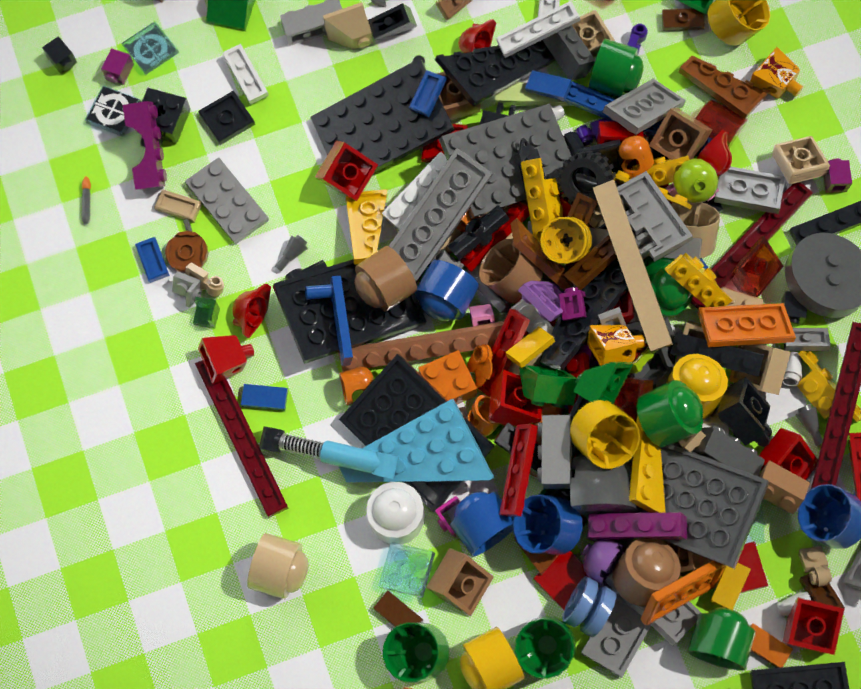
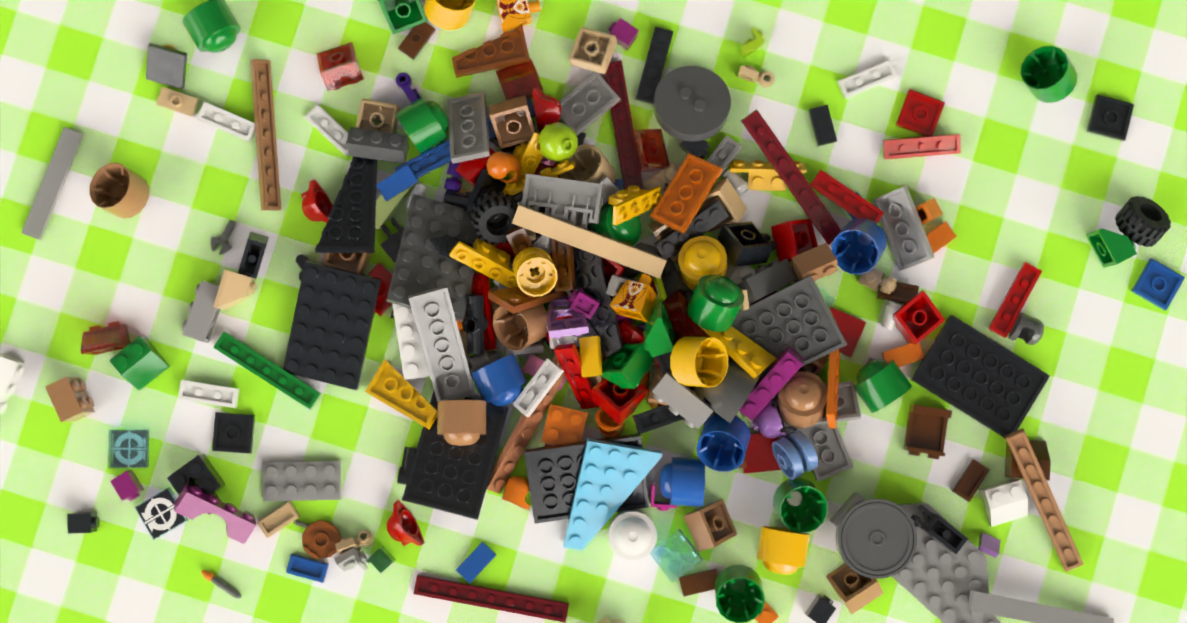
camera: 60 degrees left, 15 degrees up
(224, 356) = (426, 570): red torso -> none
(293, 249) = (379, 460): dark grey cone -> none
(301, 105) = (267, 370): none -> green plate
(330, 452) = (593, 522): piece -> none
(335, 291) = (441, 460): blue piece -> none
(346, 170) = (351, 380): red slope -> none
(427, 93) = (340, 279): blue tile -> none
(465, 324) = (538, 387): none -> white plate
(481, 364) = (569, 394): orange plate -> none
(519, 470) = (674, 434): red plate -> none
(538, 29) = (350, 157): white tile -> none
(730, 586) = (851, 352): yellow tile -> none
(809, 419) = (777, 201): dark grey cone -> none

